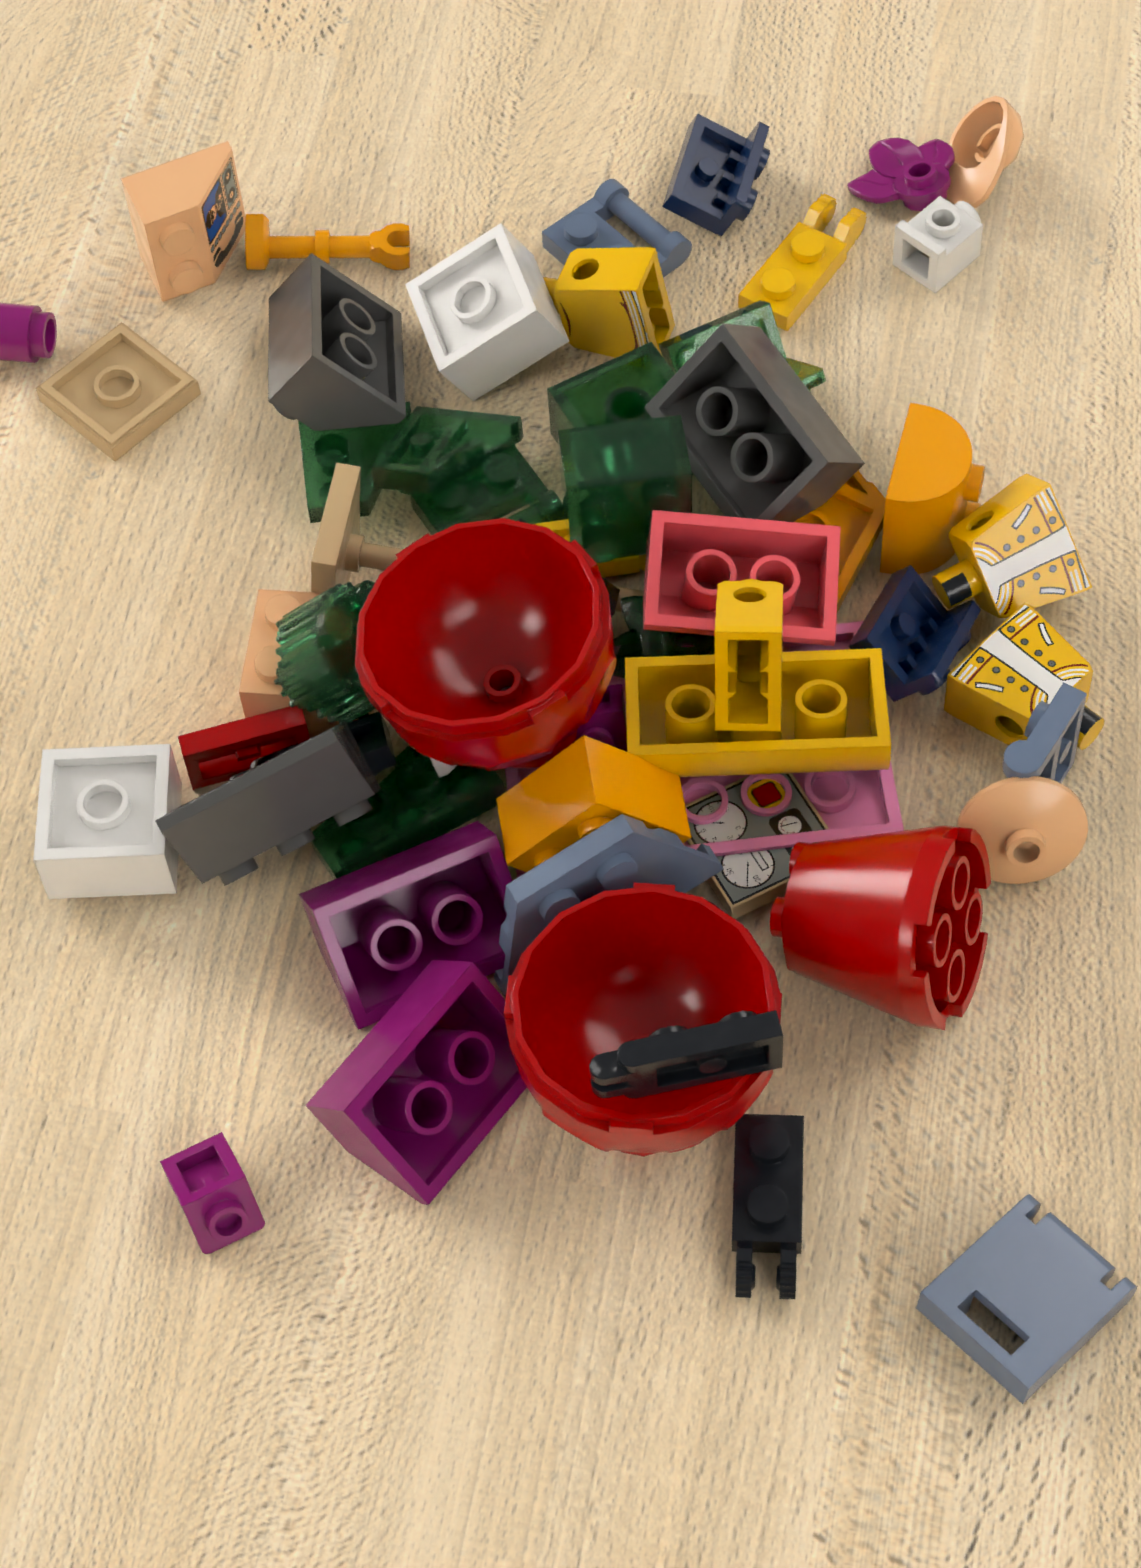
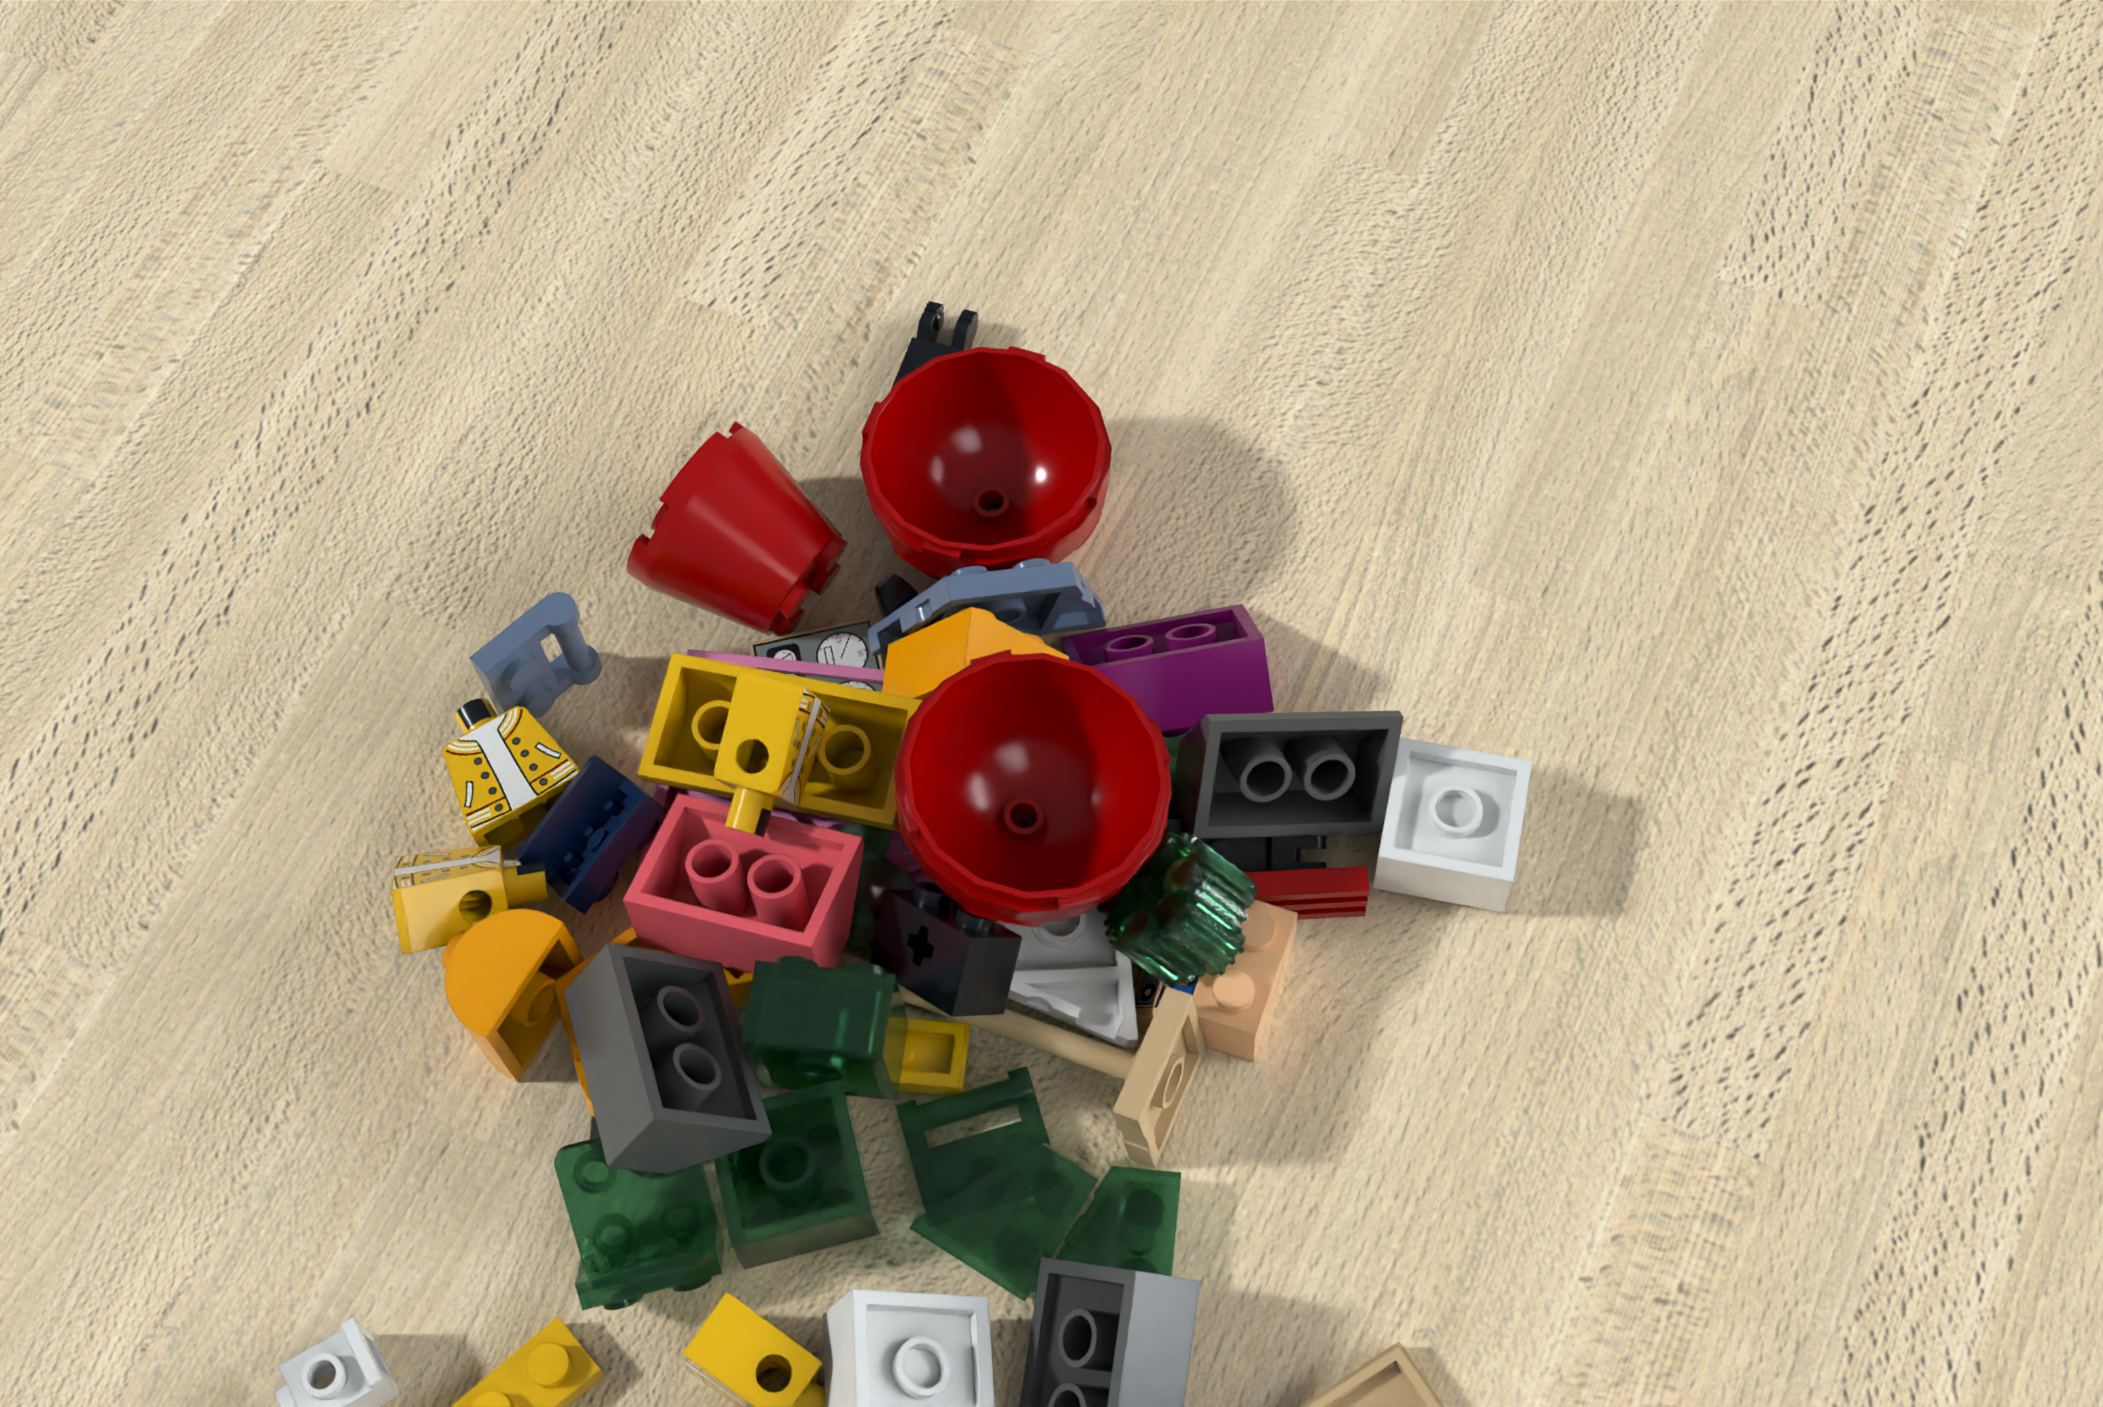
camera: 165 degrees left, 5 degrees up
(213, 1193) = (1399, 477): magenta bracket -> none
(425, 1081) = (1191, 528): magenta slope -> none
(690, 1057) = (960, 360): black hinge -> none
(1031, 812) = (591, 596): light nougat dish -> none
(1038, 1284) = (743, 270): sand blue container -> none

